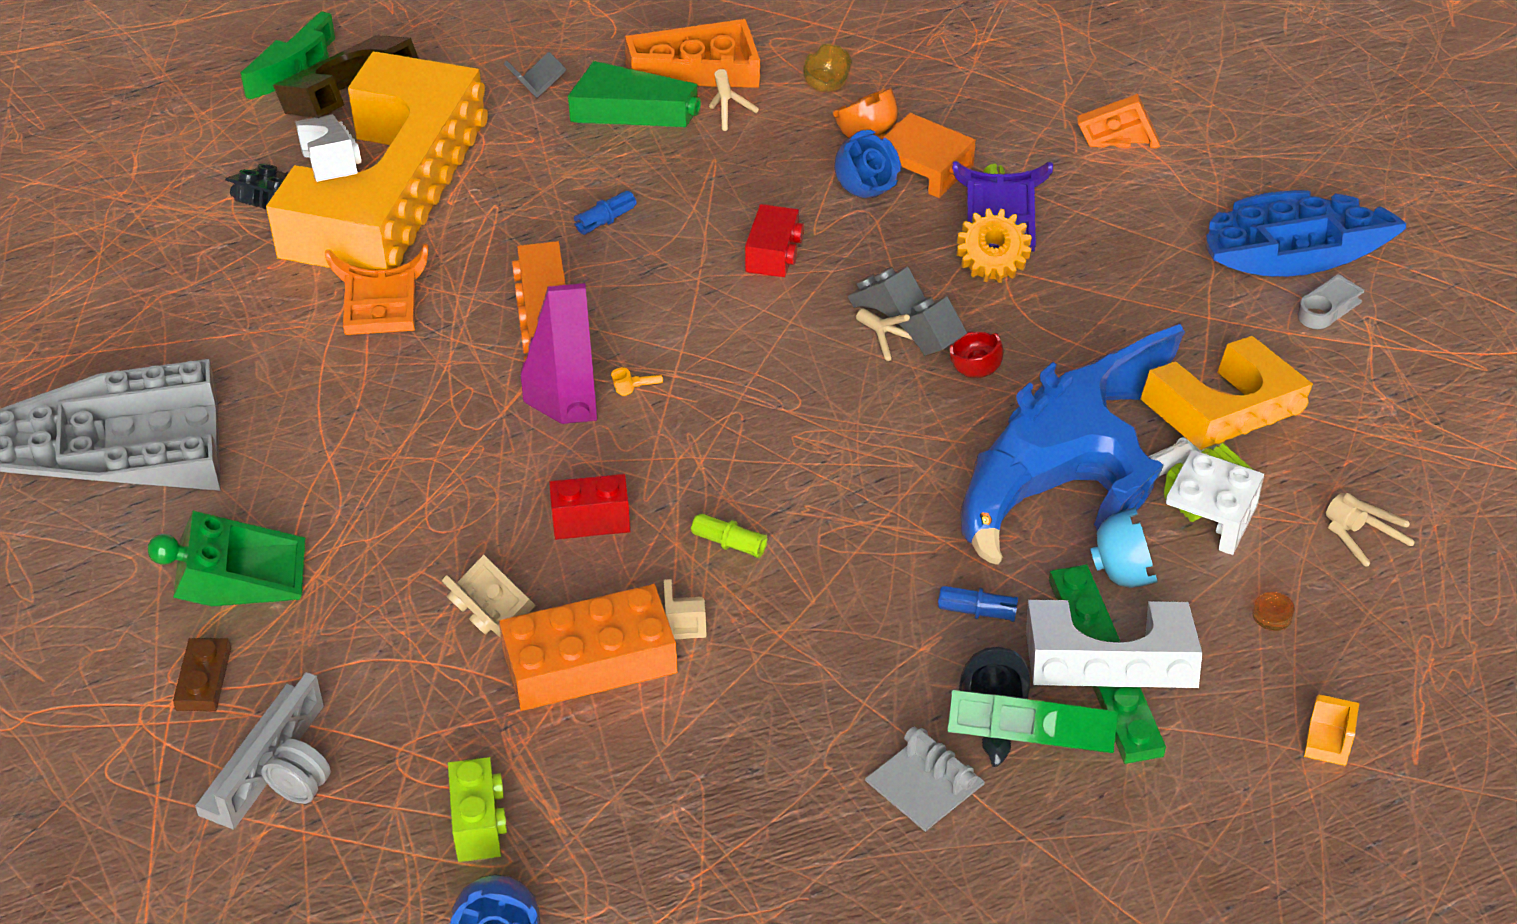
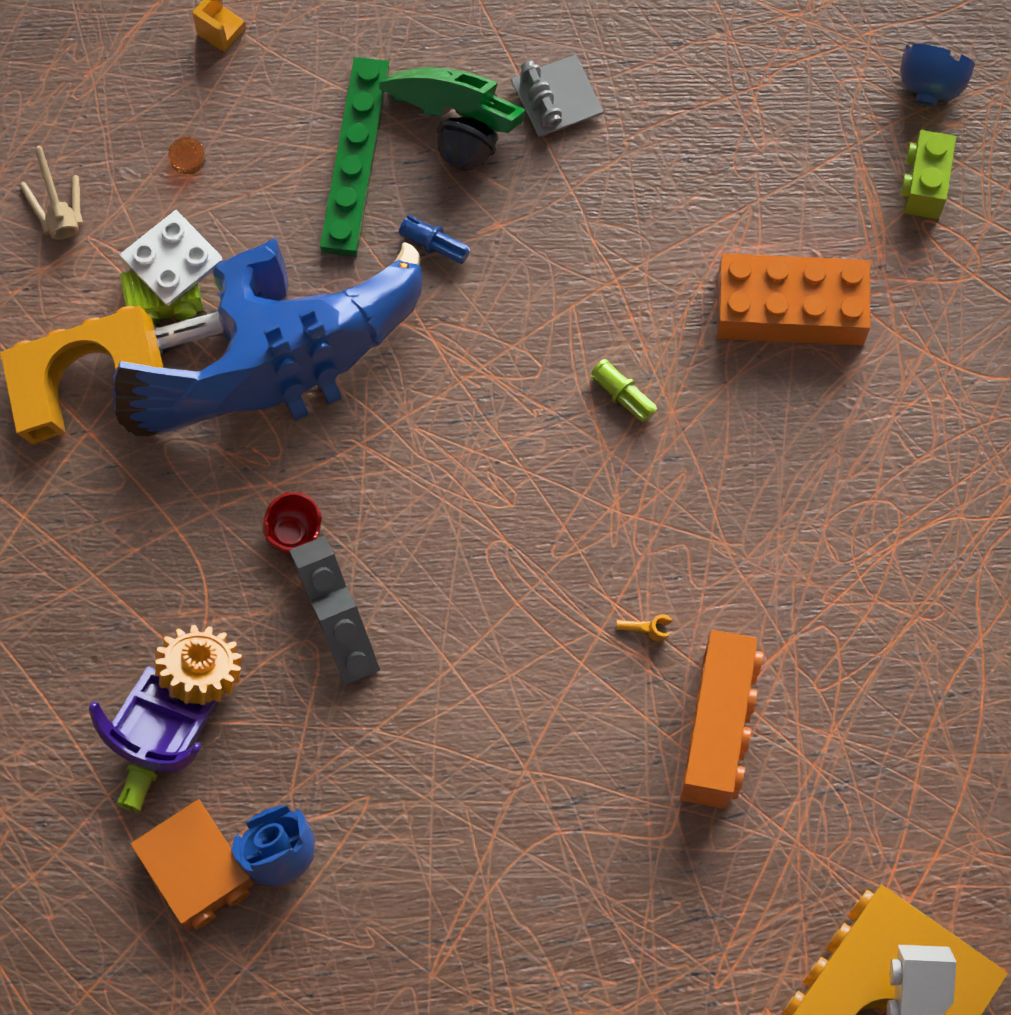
camera: 160 degrees left, 25 degrees up
(379, 298) = (889, 846): orange piece -> none
(487, 595) = (868, 386): tan bracket -> none
(559, 360) = (728, 612): magenta wedge -> none
(589, 506) = (745, 457): red brick -> none
(604, 212) = (595, 908): blue axle -> none
(684, 615) = (694, 316): tan panel -> none
(773, 240) = (426, 776): red brick -> none
(871, 112) = (231, 949): orange cylinder -> none
(882, 326) = (365, 604): tan plant -> none
(1065, 657) = (315, 107): white arch -> none
(1123, 551) = (291, 226): medium azure cylinder -> none

